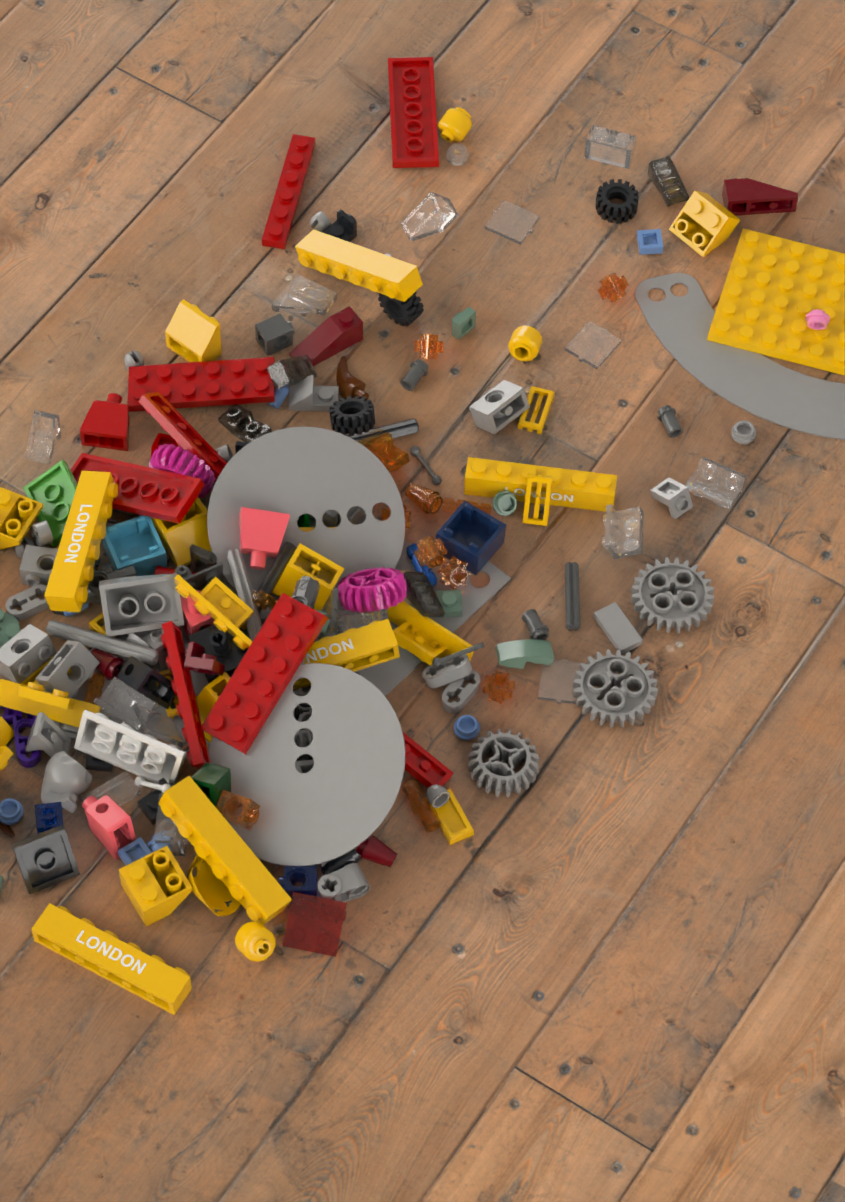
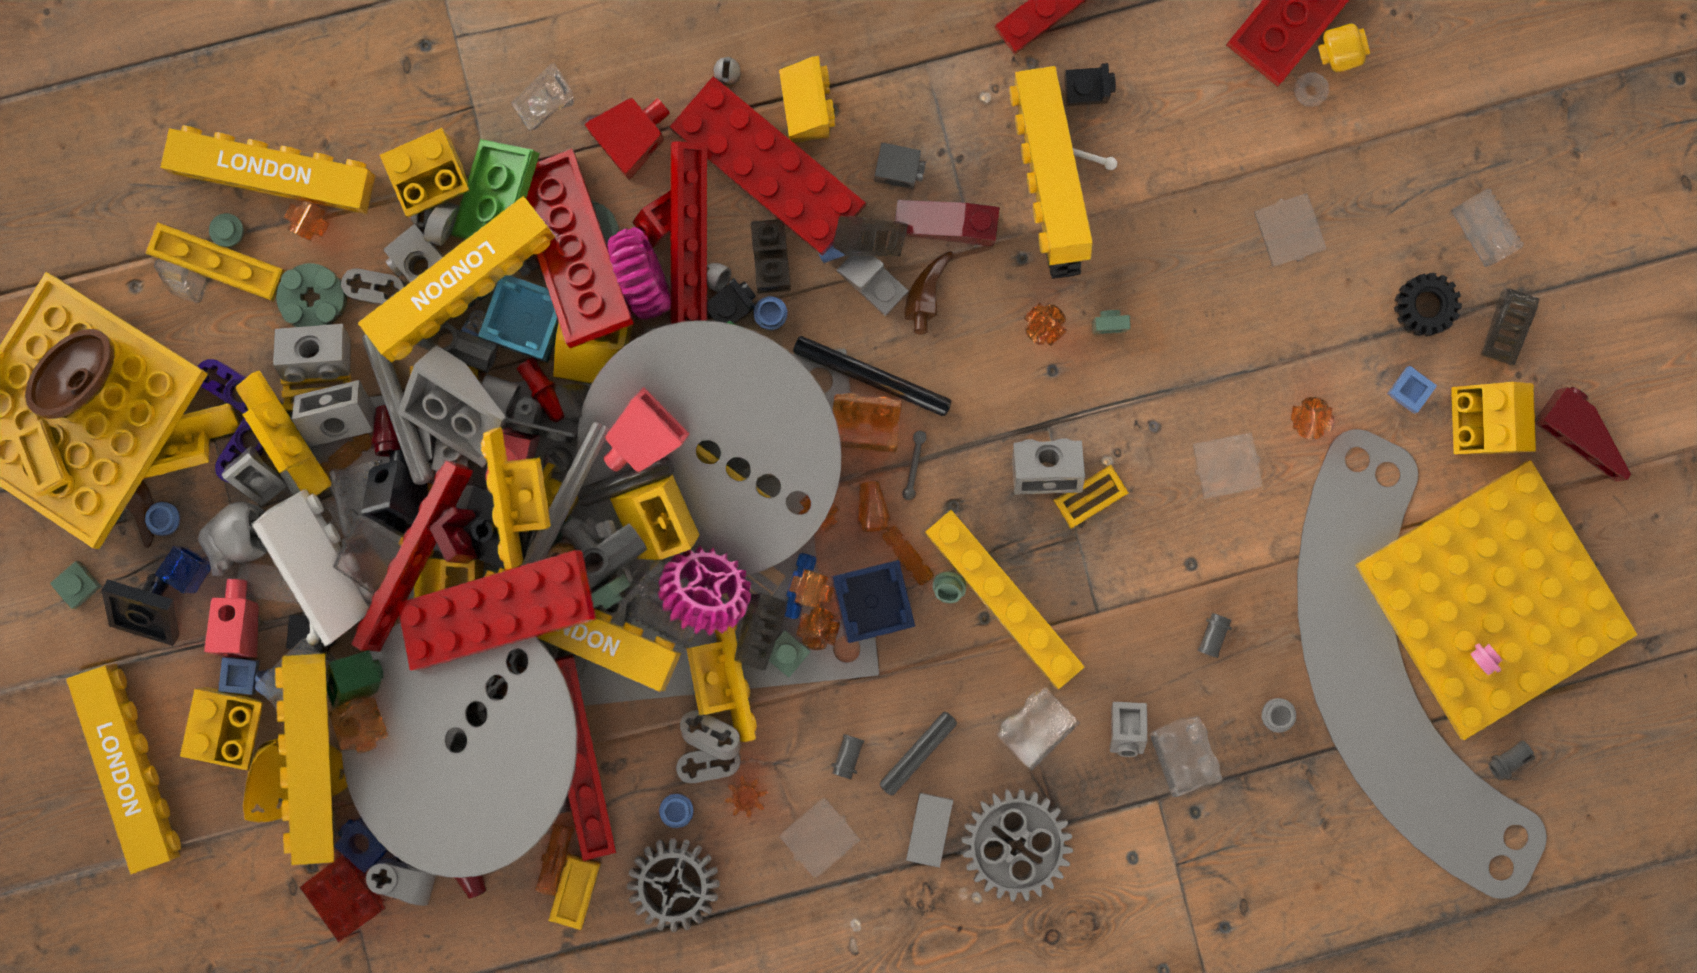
camera: 45 degrees right, 30 degrees up
(255, 941) = (266, 871): yellow head -> none
(263, 599) = (587, 511): clear orange axle -> none
(305, 296) = (977, 140): clear wing -> none
(319, 221) = (1080, 54): light grey hinge -> none
(352, 415) = (886, 328): black tyre -> none
(413, 376) = (1001, 344): dark grey pin -> none
(429, 217) = (1201, 152): clear slope -> none
(437, 662) = (753, 745): dark grey hinge -> none
(437, 795) = (572, 867): light grey hinge -> none
(519, 652) = (806, 780): sand green slope -> none
(525, 343) = (1151, 408): yellow head -> none
(539, 479) = (991, 610): yellow tile -> none
(615, 688) = (857, 930): light grey gear -> none

